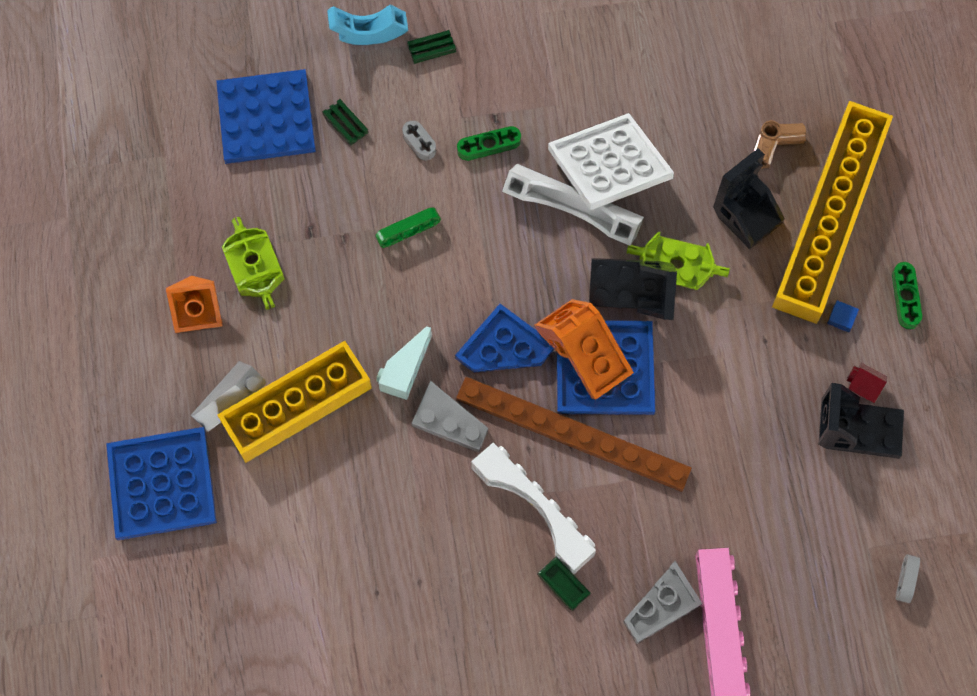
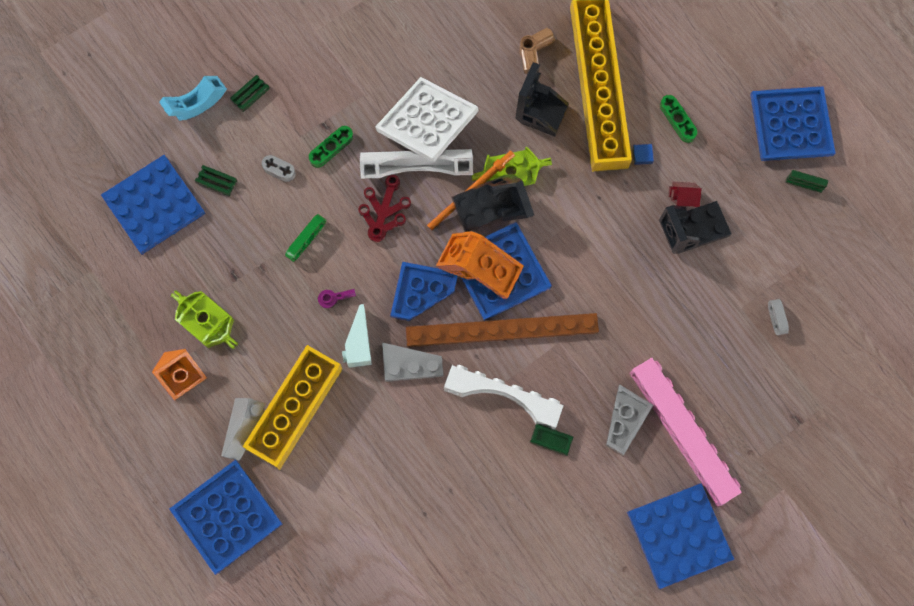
camera: 30 degrees left, 5 degrees up
(397, 305) = (328, 298): none -> magenta plate
(510, 239) = (384, 211): none -> dark red plant
(662, 248) = (497, 166): none -> orange bar

